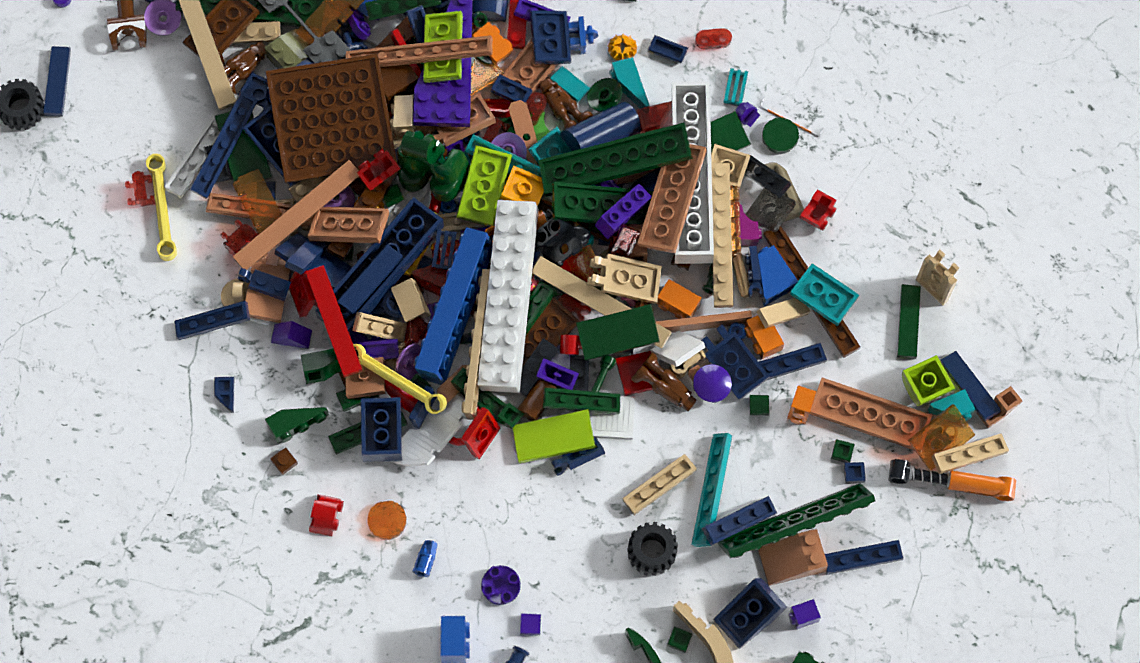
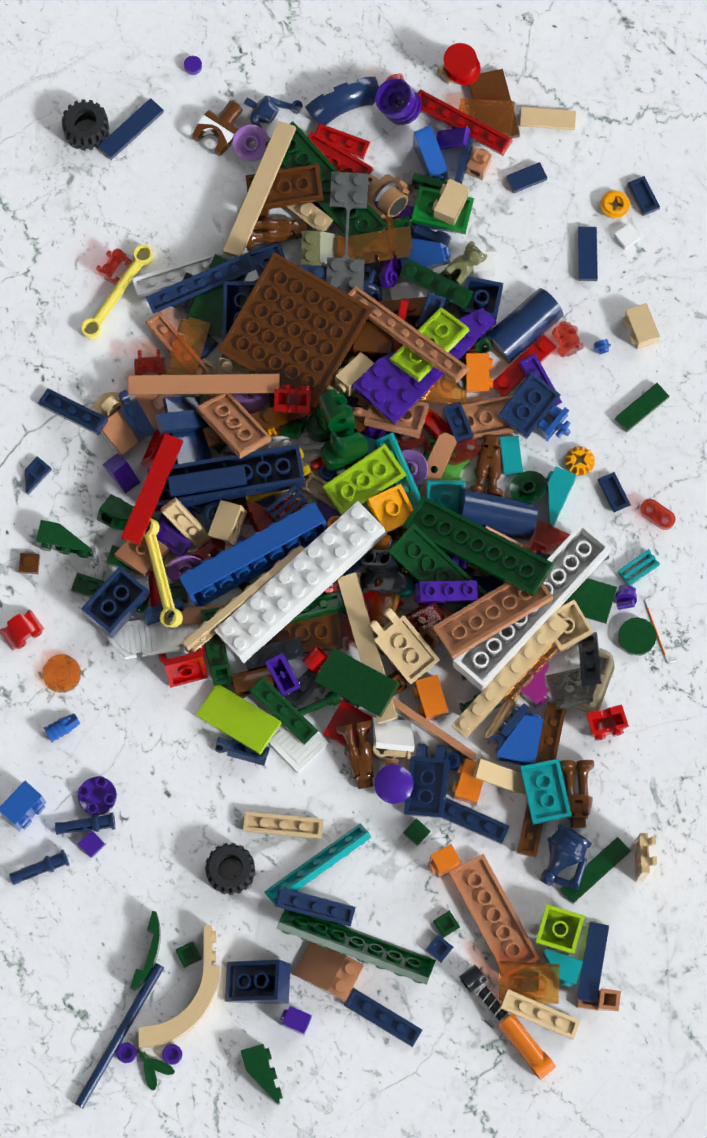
camera: 45 degrees right, 5 degrees up
(519, 606) = (95, 823): none -> dark blue pin
(853, 280) = (580, 803): none -> reddish brown piece
(877, 322) = (565, 850): none -> dark blue piece

